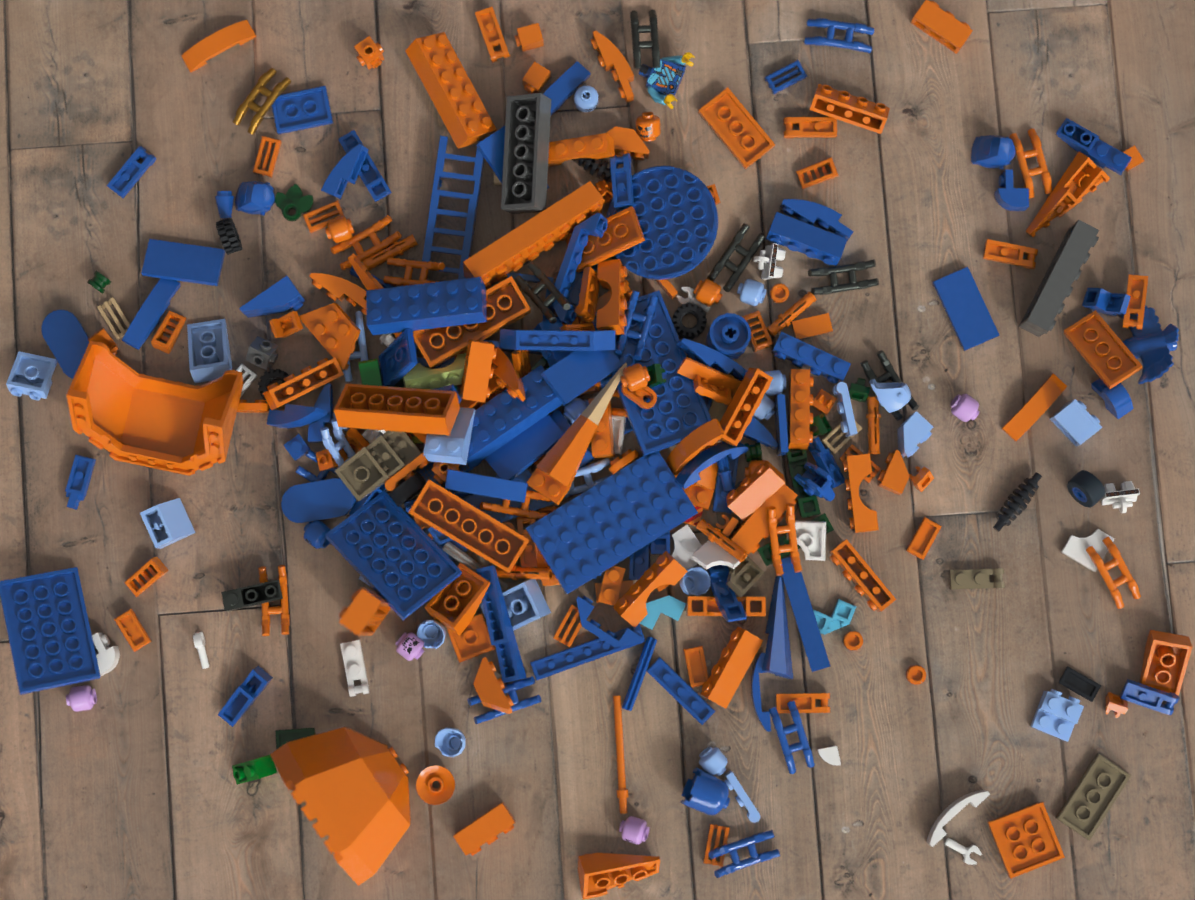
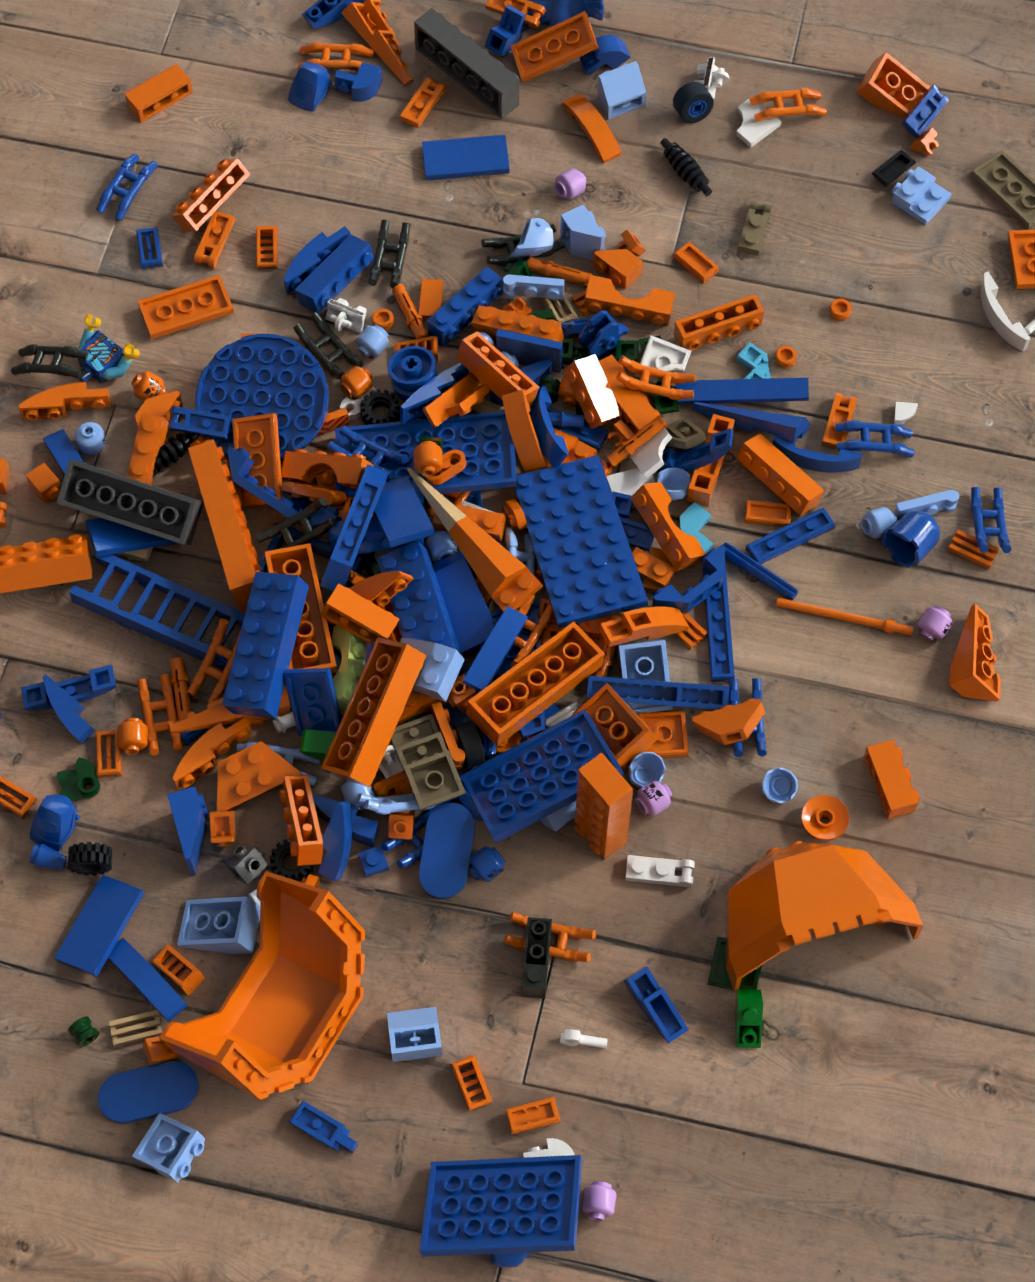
camera: 70 degrees left, 20 degrees down
(549, 596) = (643, 622): none -> orange slope

